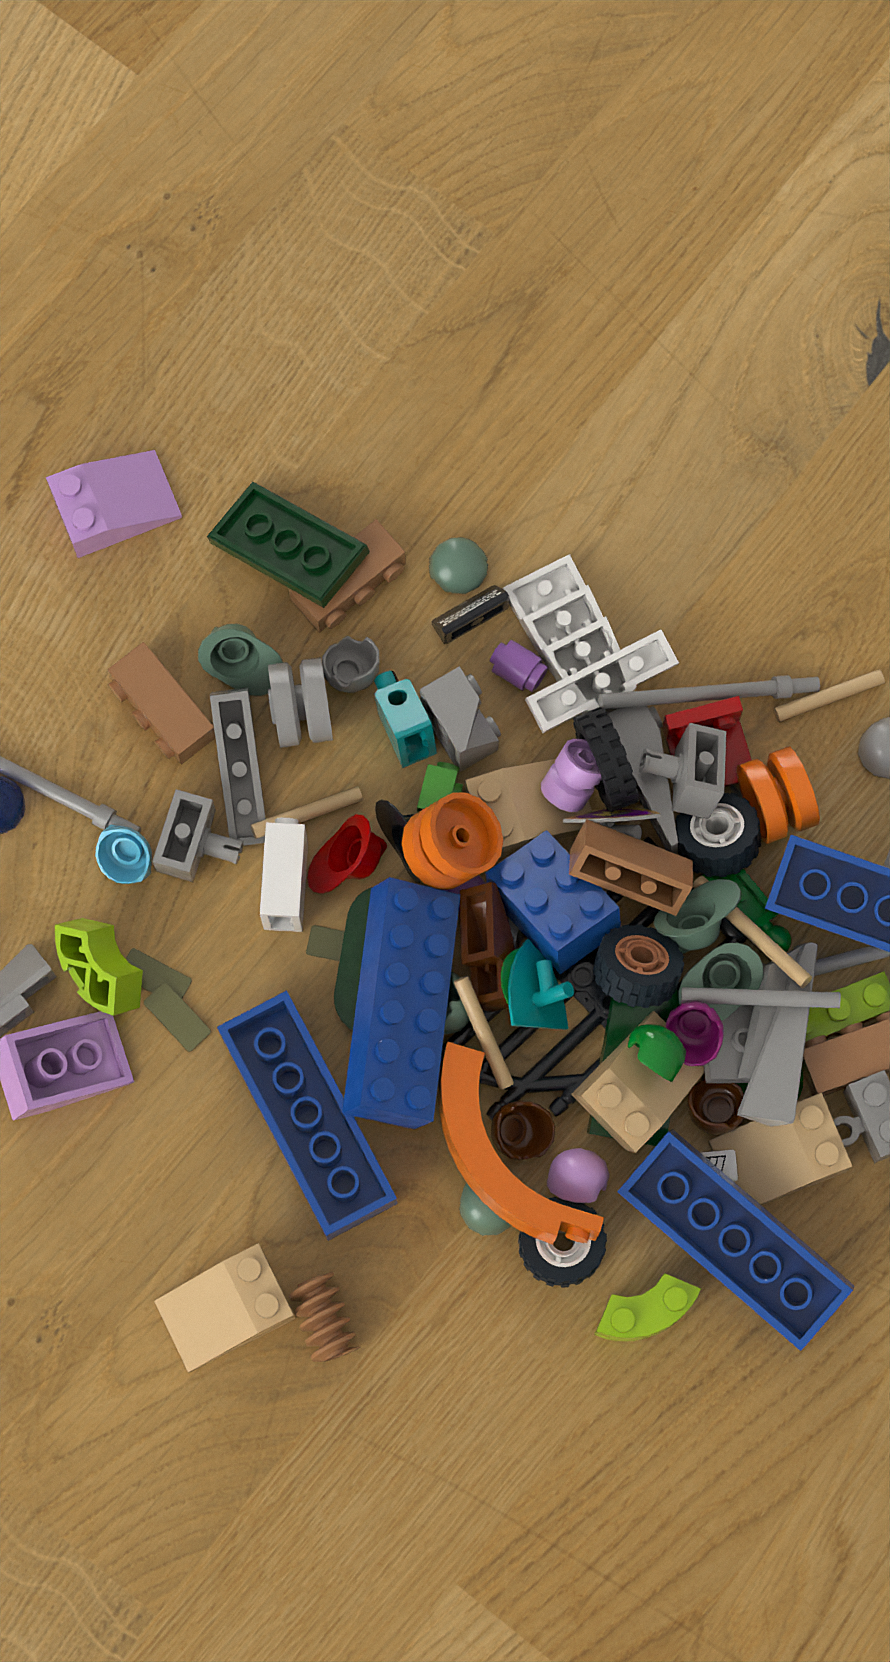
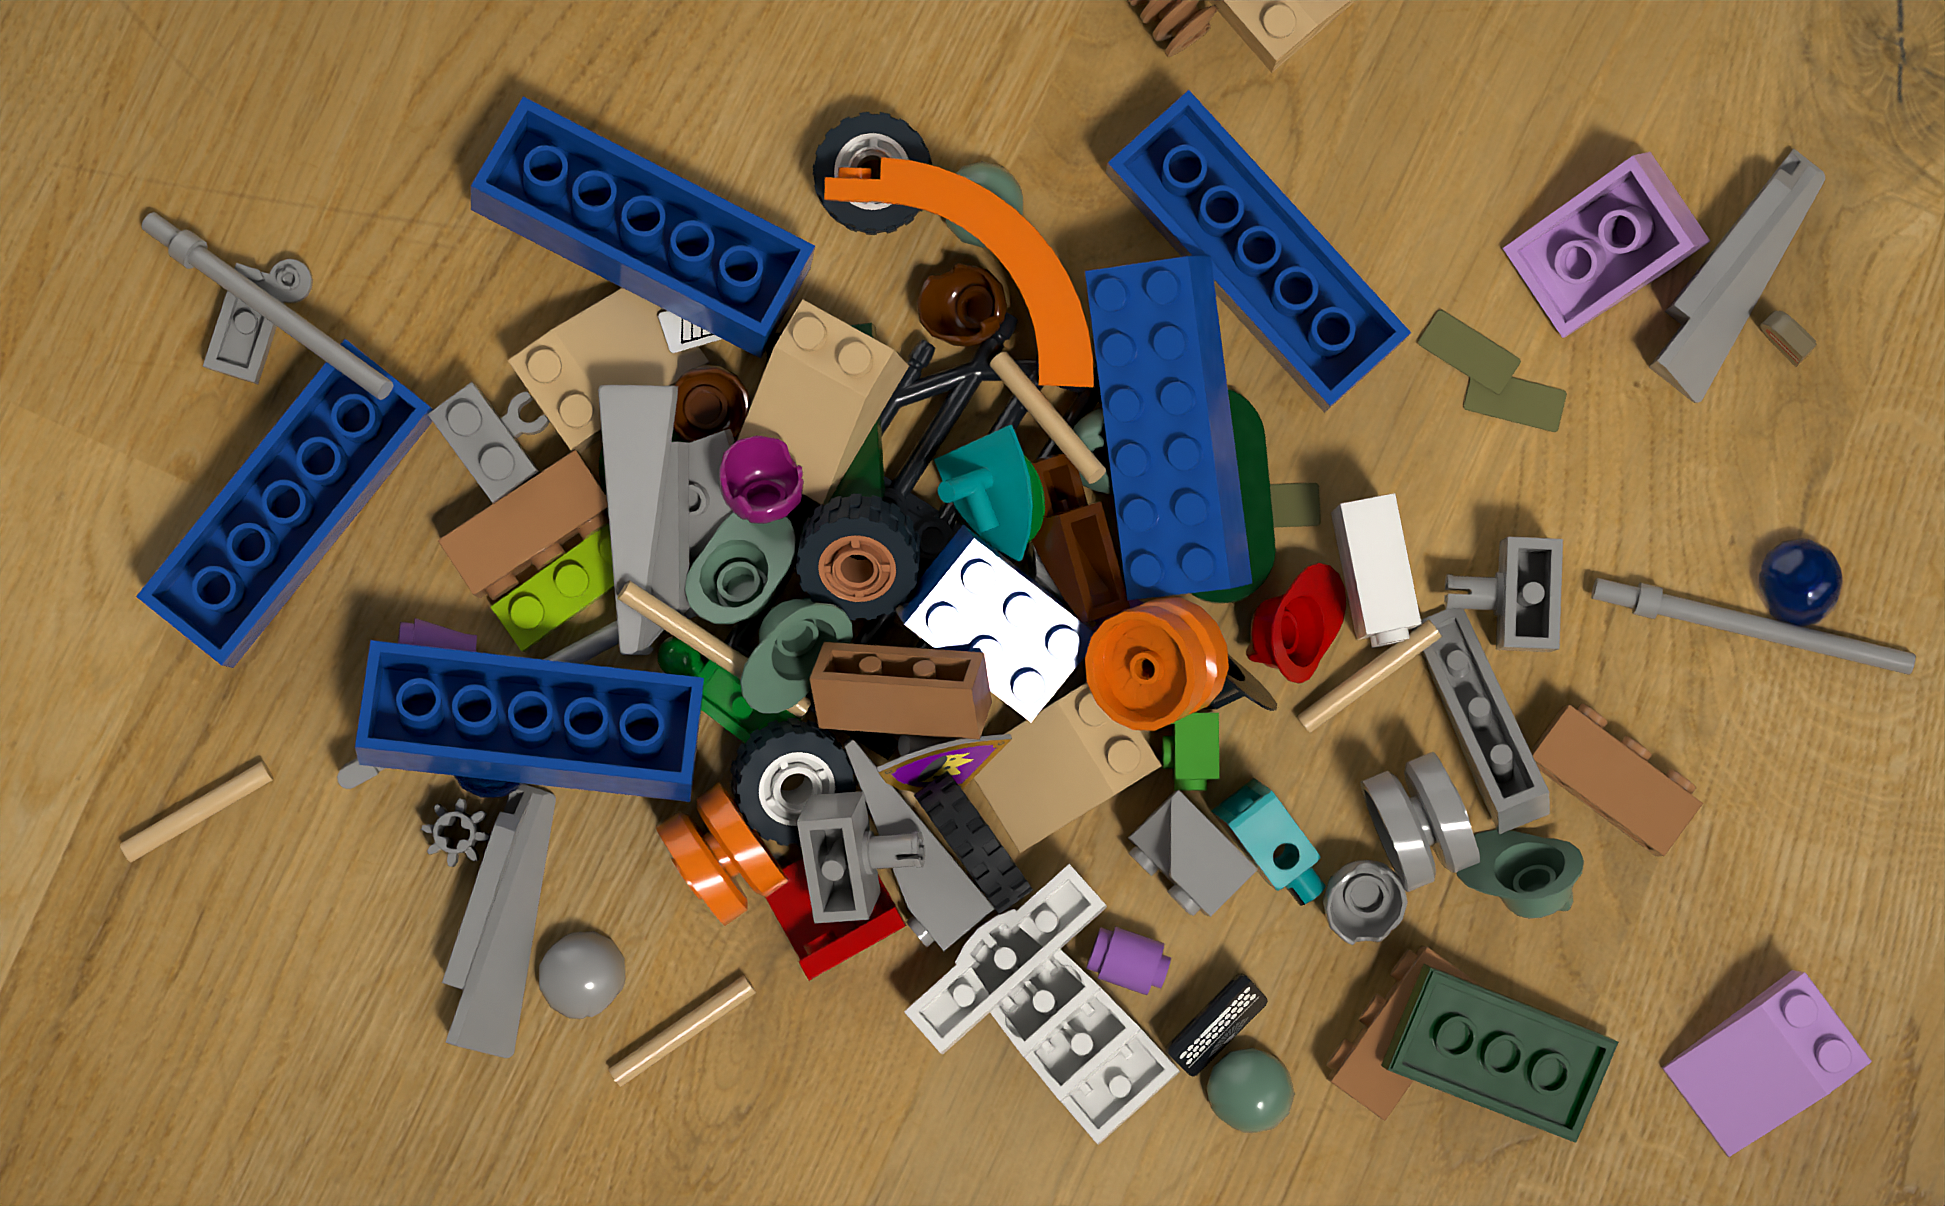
camera: 165 degrees right, 10 degrees up
(97, 965) = (1596, 384): lime brick -> none
(123, 855) = (1604, 551): medium azure hat -> none
(572, 777) = (1016, 802): lavender wheel -> none
(577, 1175) = (873, 262): lavender hair -> none
(648, 1313) = (737, 105): lime brick -> none
(658, 1049) = (802, 435): green hair -> none
(761, 997) = (681, 552): light grey bar -> none
(778, 687) = (755, 1021): light grey bar -> none

